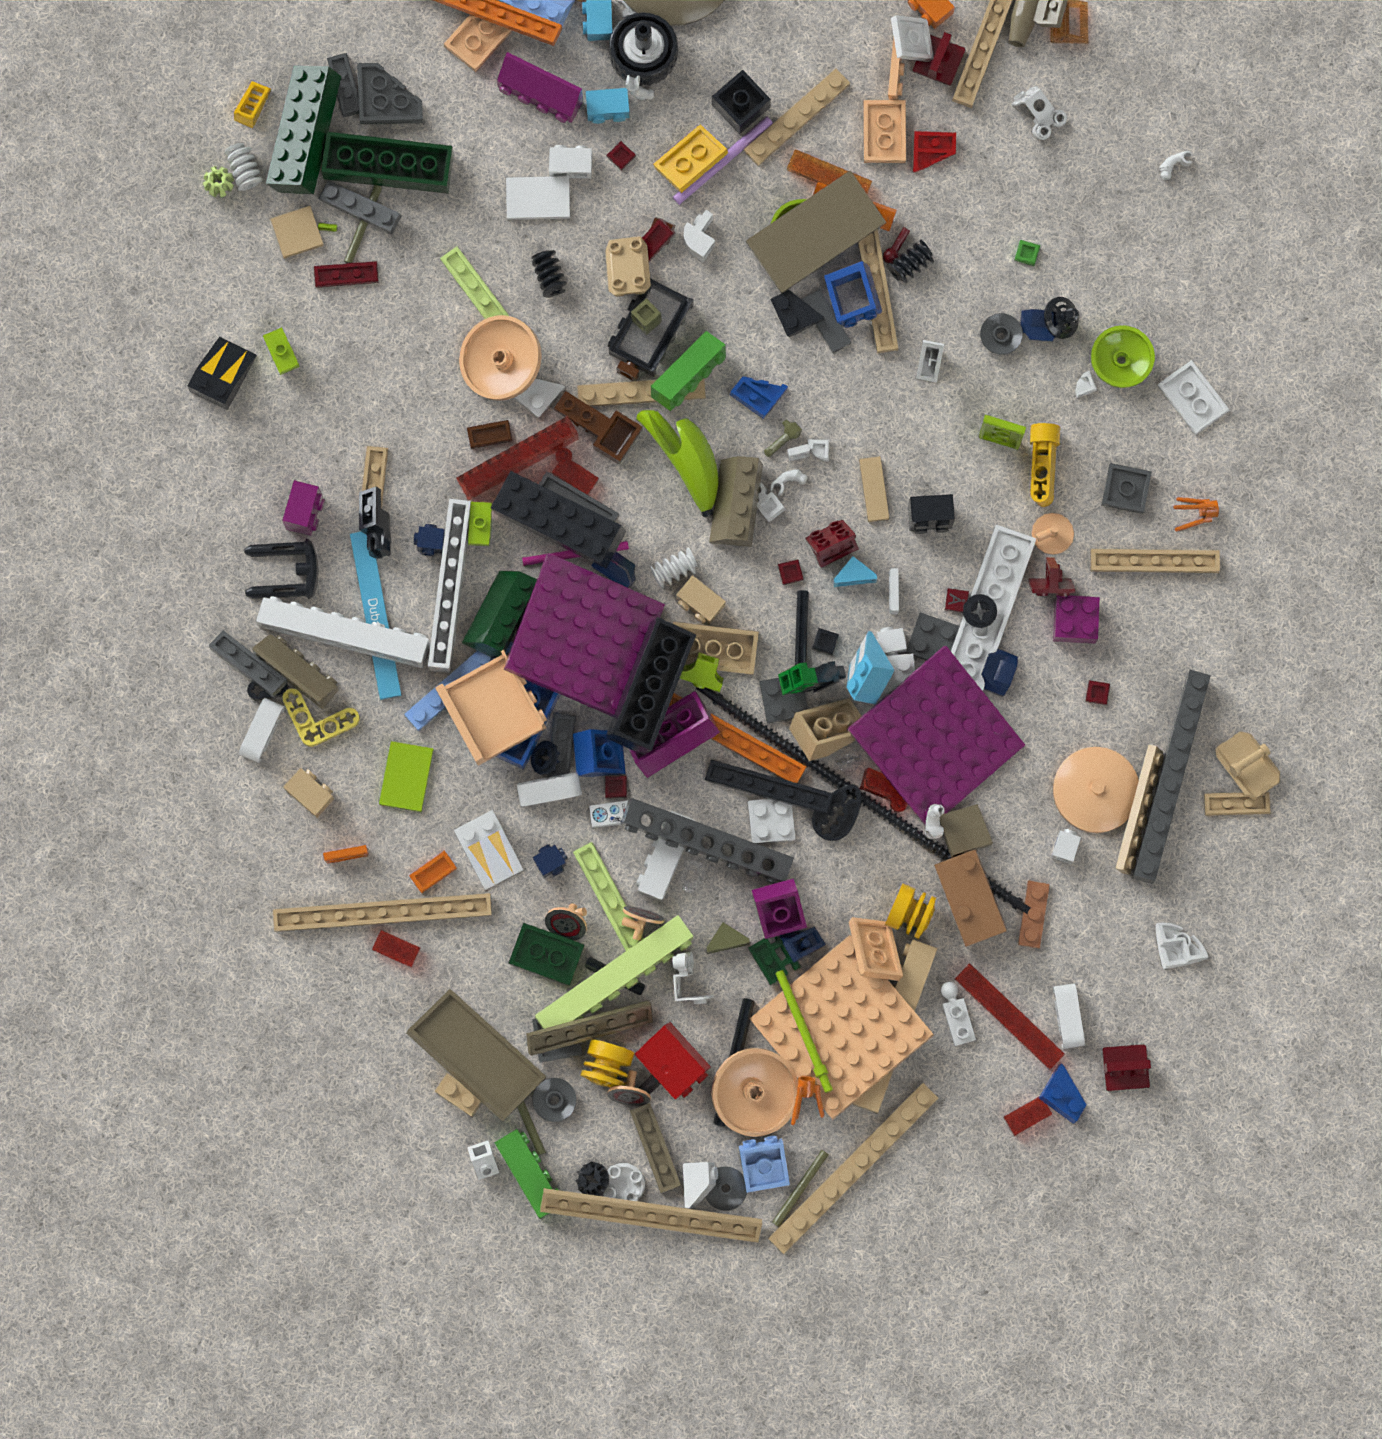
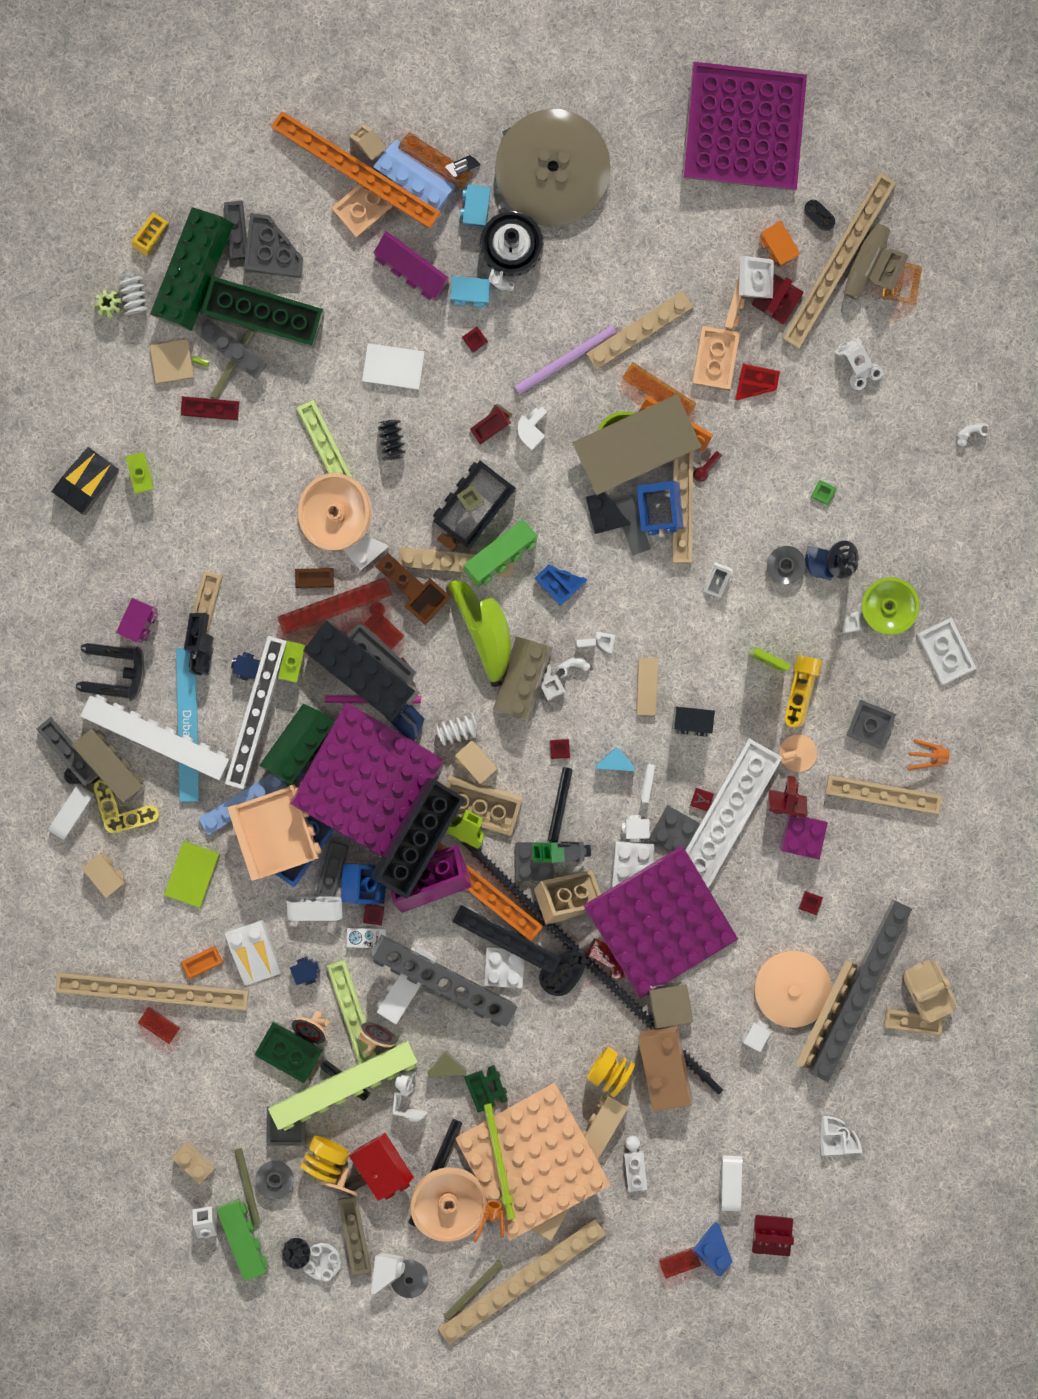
camera: 10 degrees right, 10 degrees up
(346, 854) = (128, 935): orange tile -> none
(476, 1055) = (213, 1131): dark tan tile -> none
(544, 749) = (309, 882): black gear -> none
(570, 161) = (428, 339): white brick -> none
(589, 1028) = (314, 1126): dark tan tile -> none
(627, 266) = (462, 447): tan shield -> none
(651, 1215) = (340, 1295): tan plate -> none
(690, 158) = (536, 354): yellow plate -> none
(741, 101) = (591, 309): black brick -> none
(764, 1164) = (445, 1266): light blue plate -> none
(779, 908) = (496, 1050): magenta brick -> none
(791, 431) = (583, 622): olive piece -> none
(802, 943) = (511, 1080): dark blue slope -> none
(825, 641) = (579, 816): black tile -> none
(832, 542) = (601, 729): dark red bracket -> none
(869, 671) = (611, 856): medium azure slope -> none
(875, 949) = (573, 1100): light nougat plate -> none
(911, 261) = (717, 485): black piece -> none
(933, 828) = (644, 1000): white piece -> none
(986, 604) = (726, 822): black gear -> none
(999, 672) = (728, 871): dark blue slope -> none
(1009, 1016) = (680, 1174): clear red plate -> none
(1033, 922) = (715, 1097): nougat plate -> none

